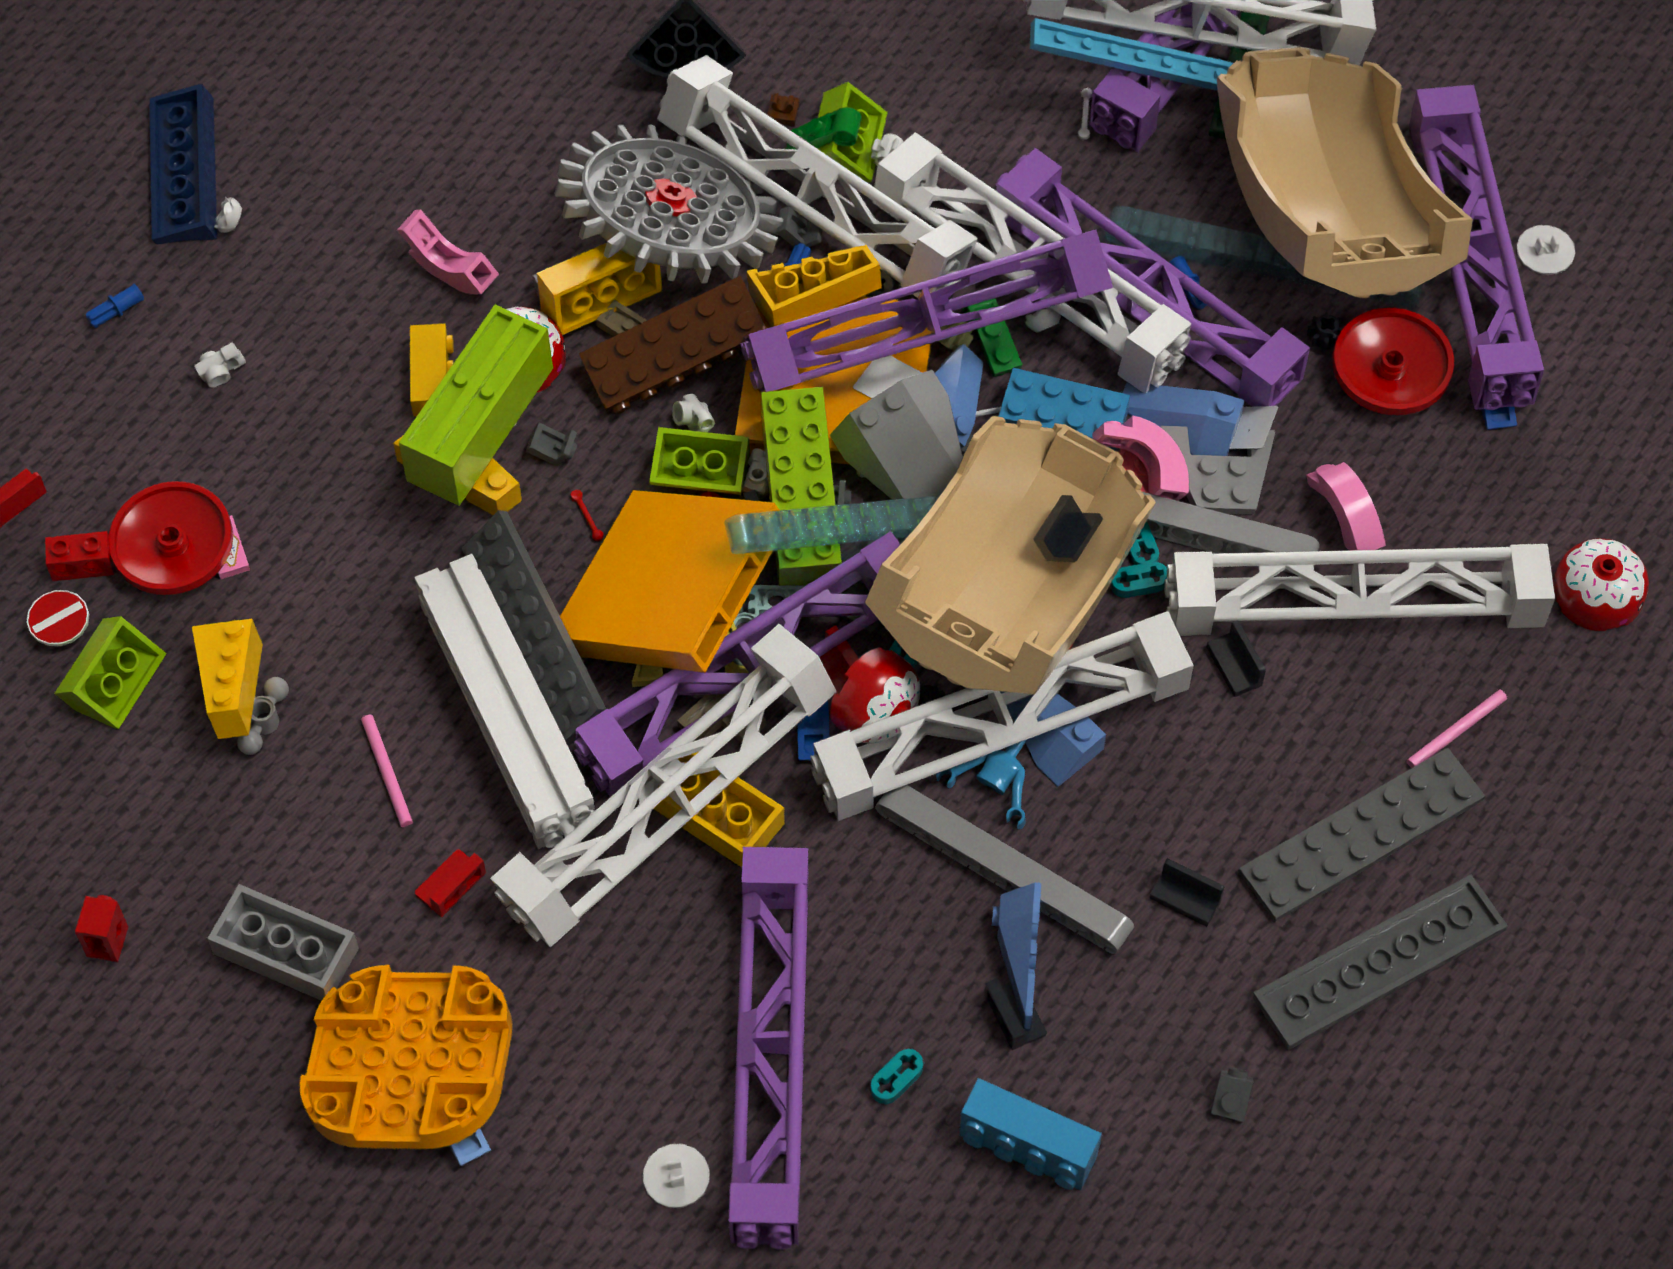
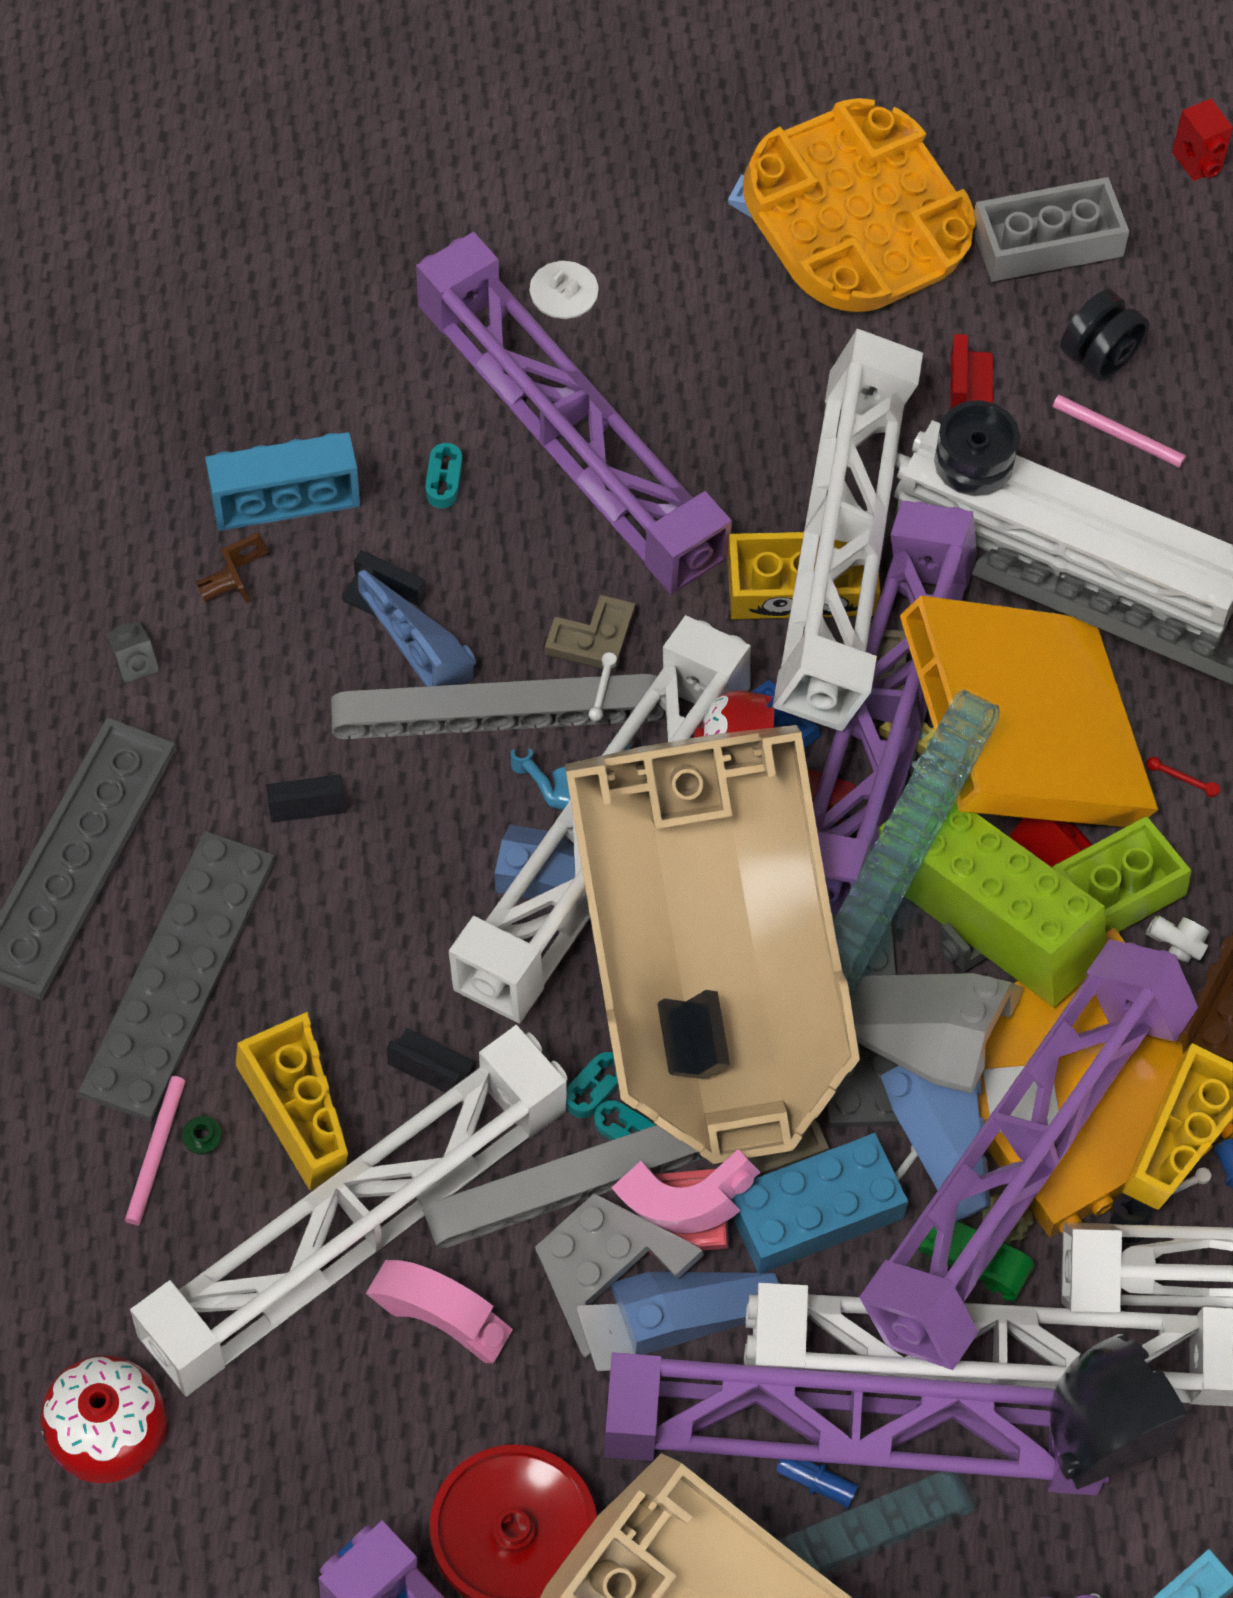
camera: 140 degrees right, 0 degrees up
(335, 824) = (1104, 335): none -> black wheel
(535, 758) = (976, 447): none -> black wheel
(893, 865) = (590, 642): none -> dark tan plate
(905, 829) = (608, 661): none -> white hinge
(1018, 148) = (1112, 1412): none -> black brick
(1119, 1099) = (229, 577): none -> reddish brown bracket
(1343, 694) = (294, 1095): none -> yellow wedge
(1417, 722) = (204, 1145): none -> dark green plate

